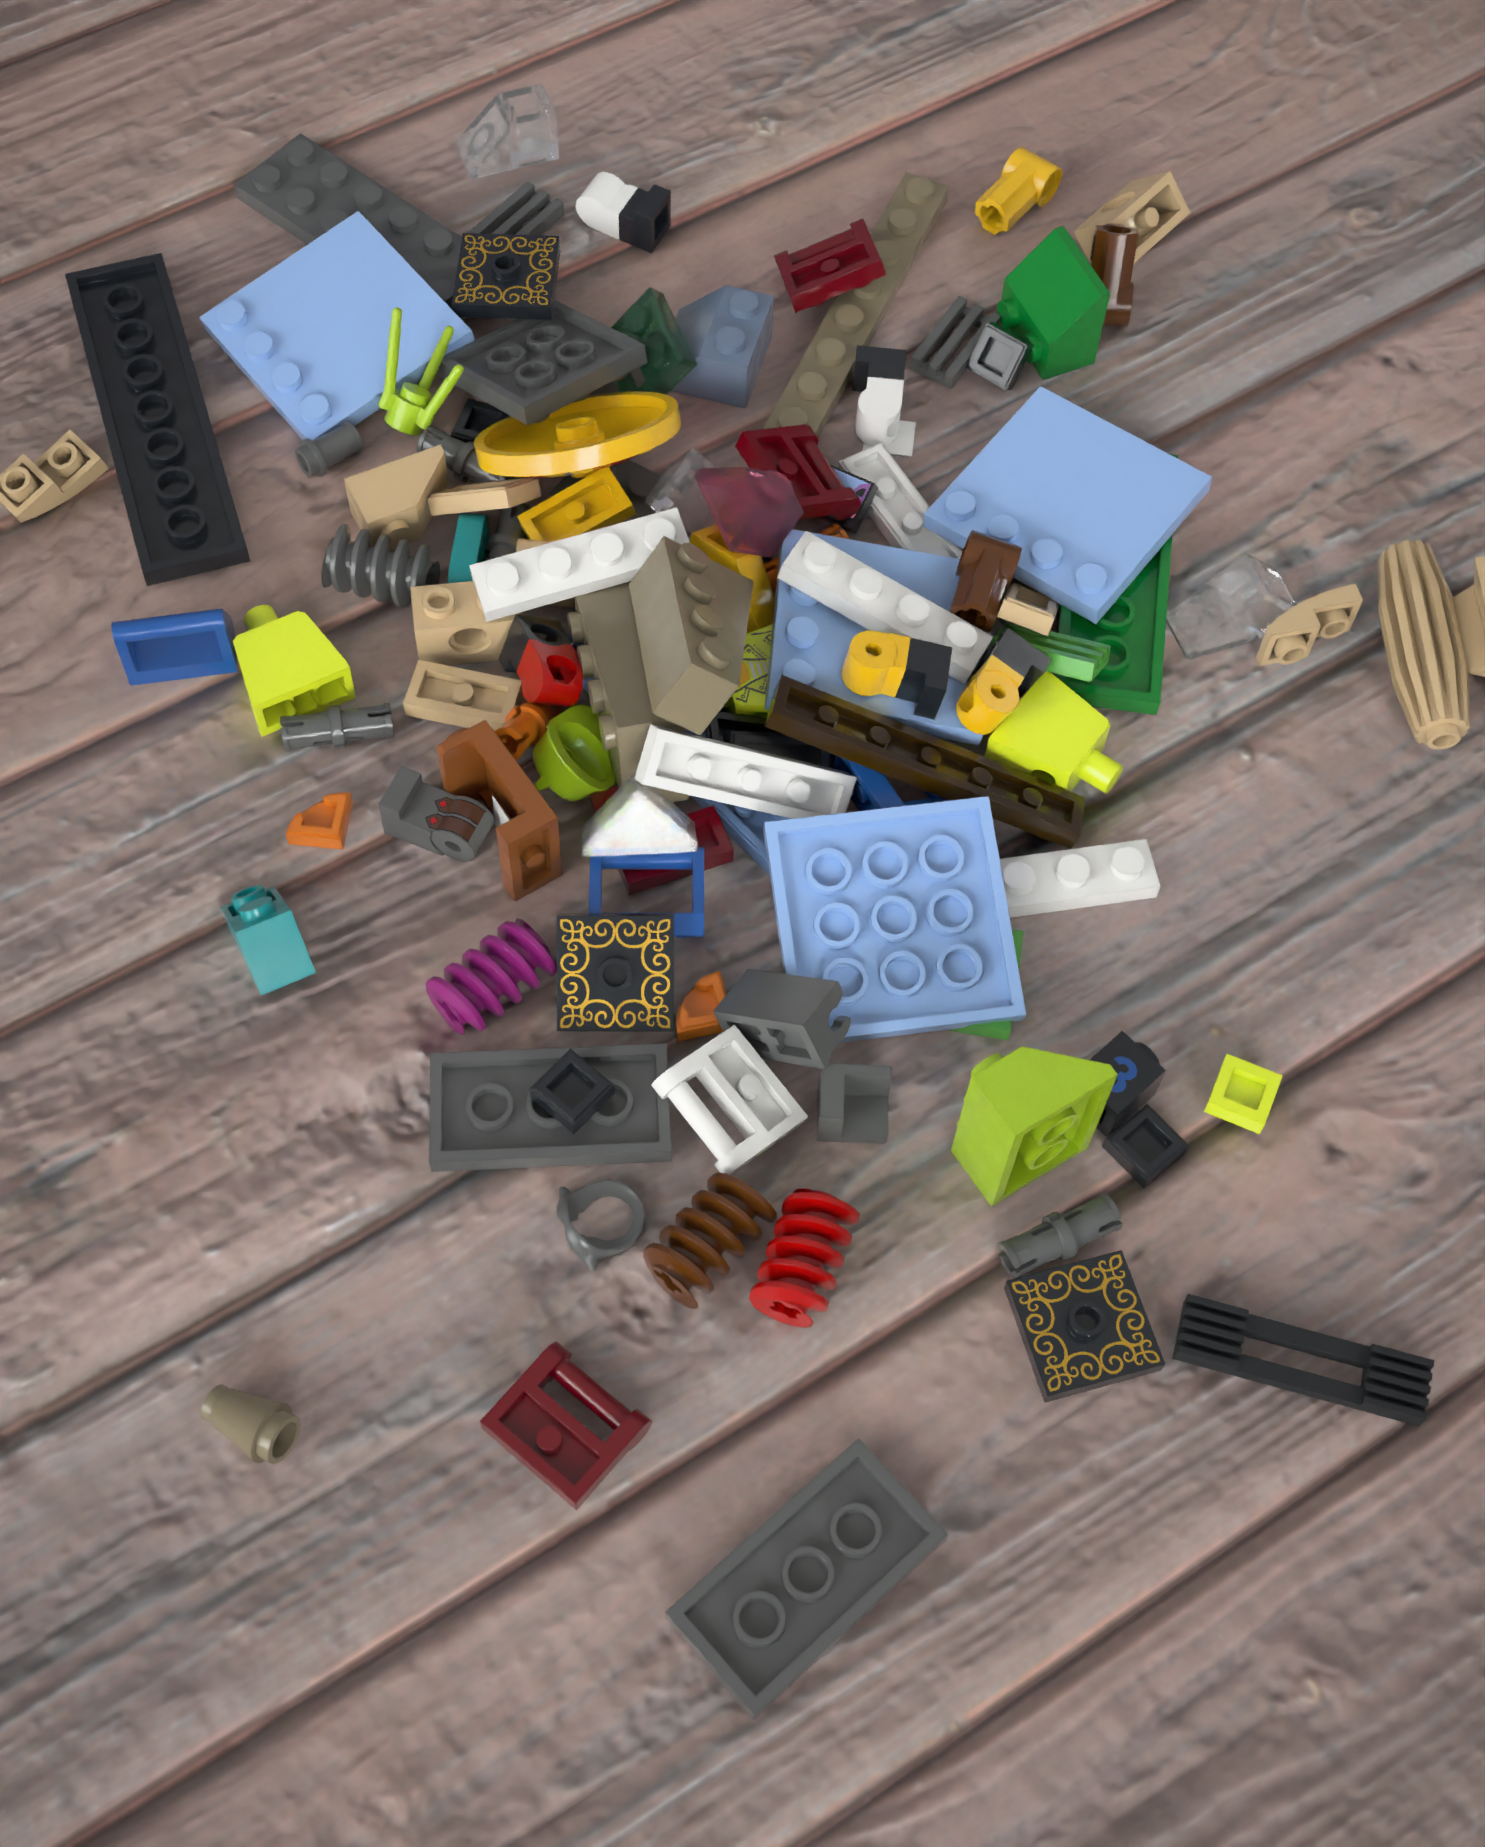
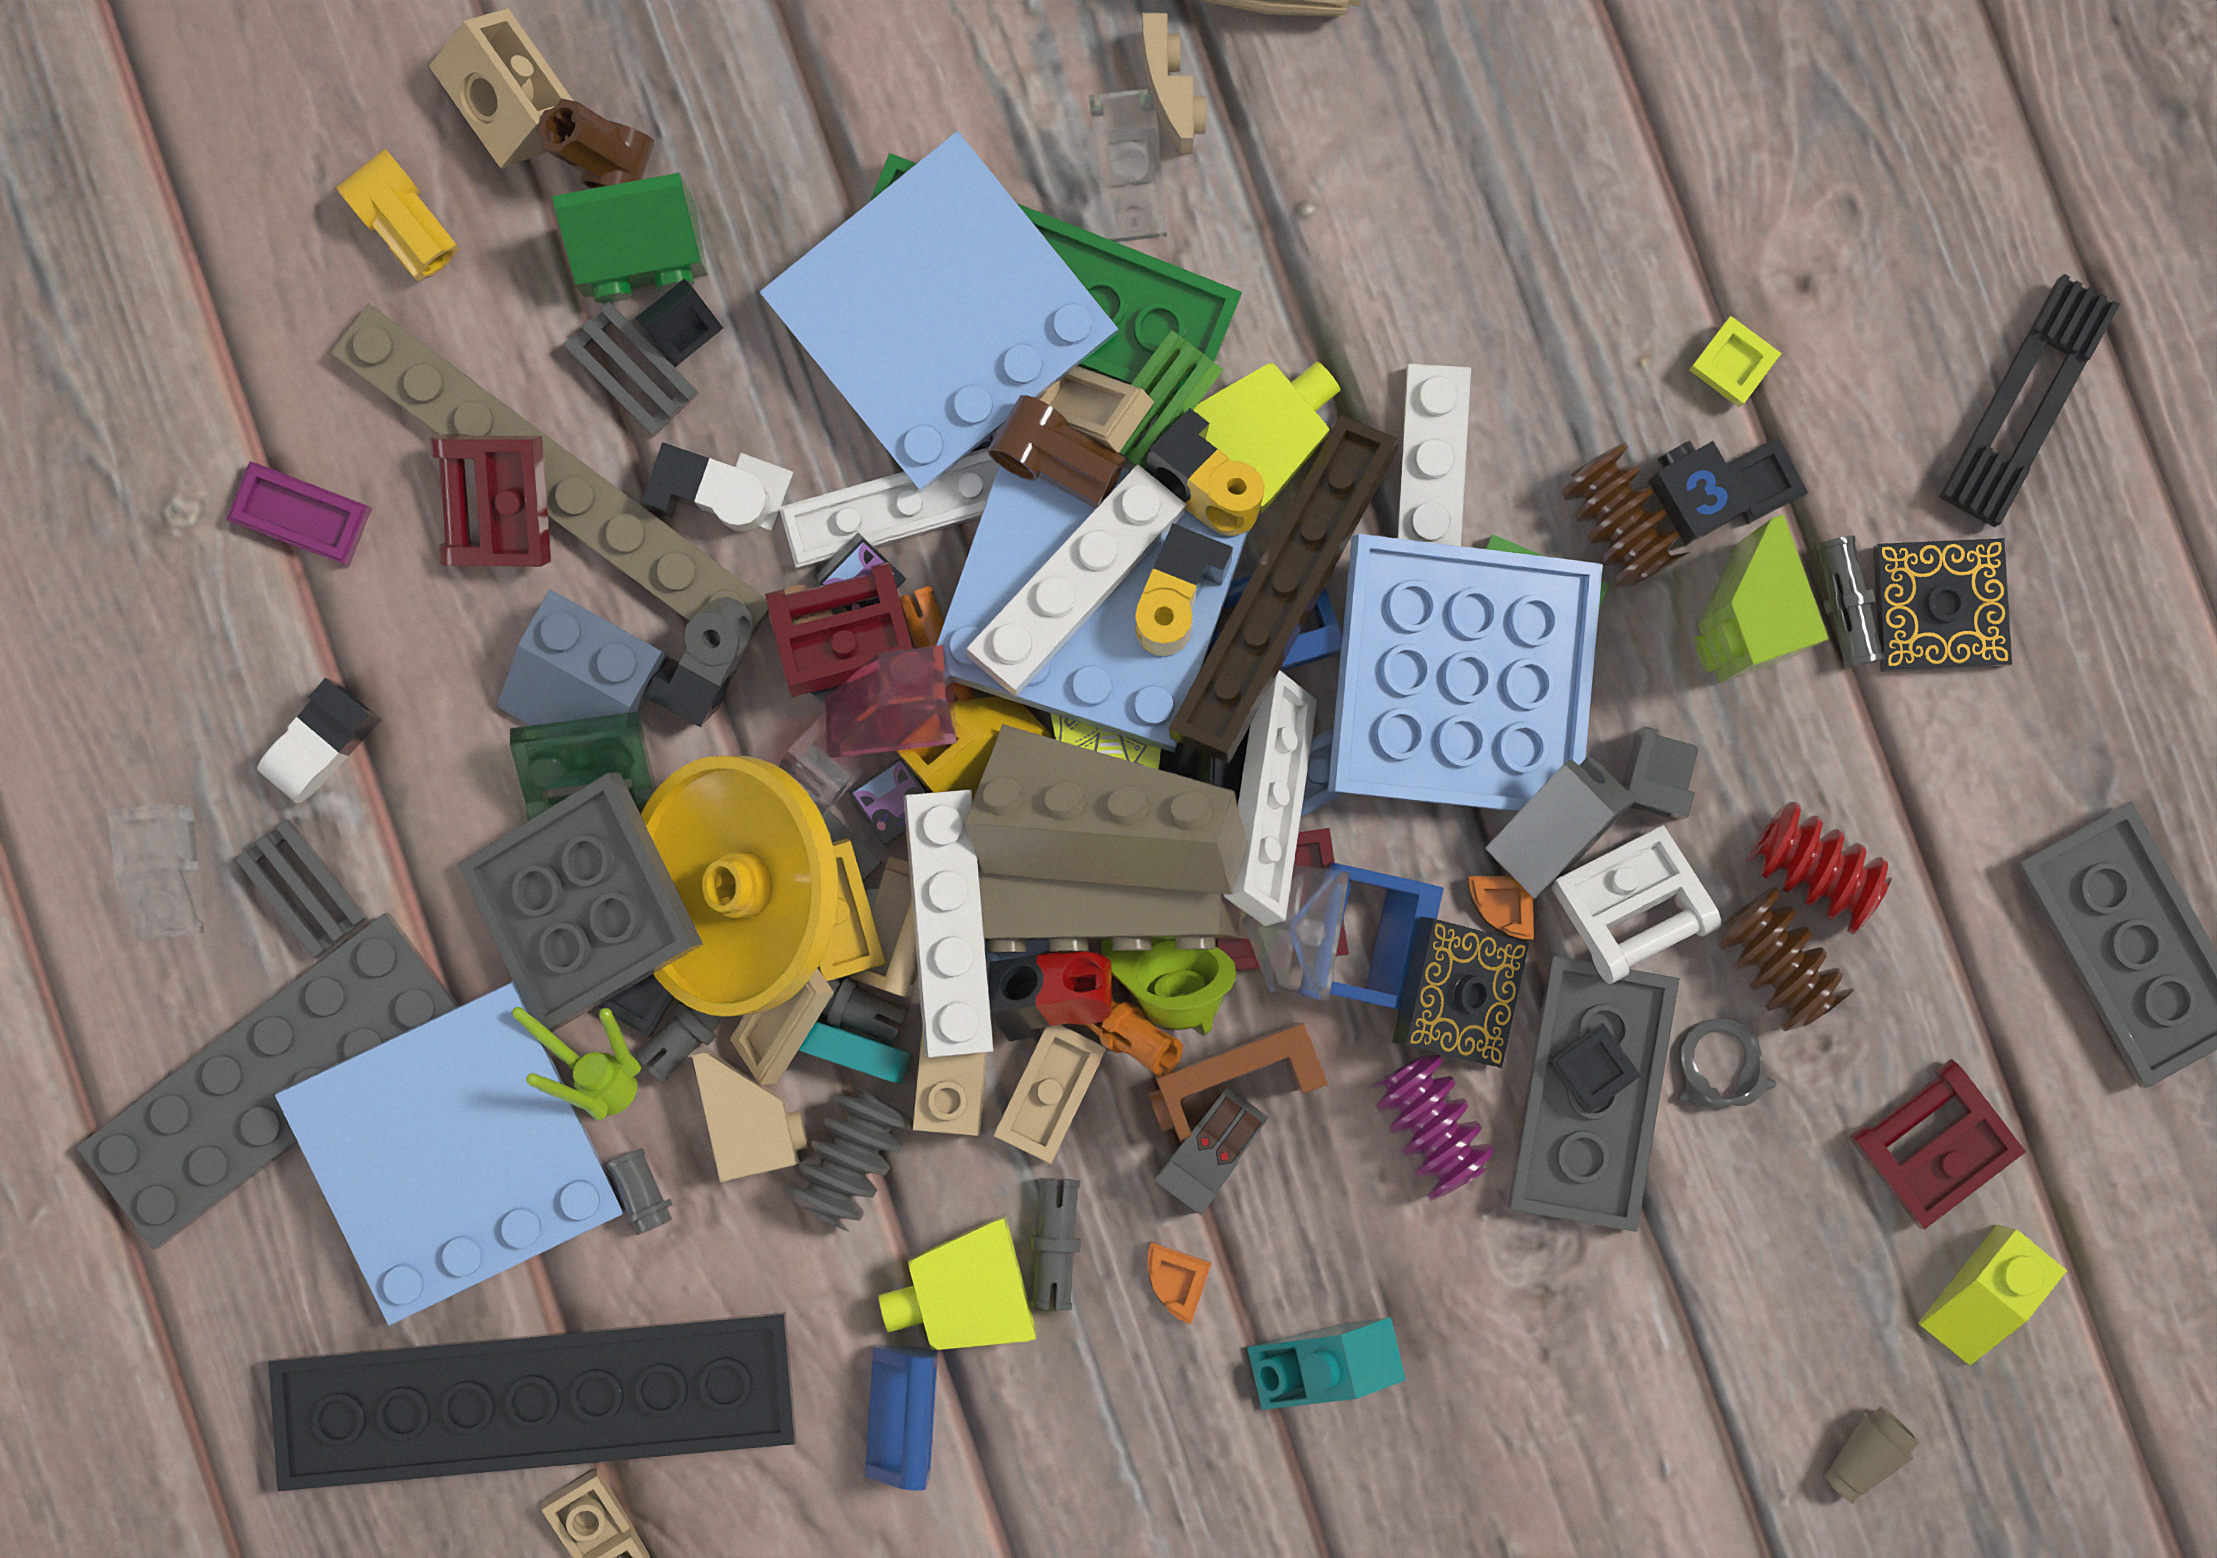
camera: 75 degrees left, 25 degrees up
(430, 1504) = (1992, 1294): none -> neon yellow slope
(506, 276) = (423, 920): black plate -> none
(746, 405) = (714, 650): none -> leg
(785, 181) = (299, 513): none -> magenta tile
(1077, 1014) = (1621, 518): none -> reddish brown piece

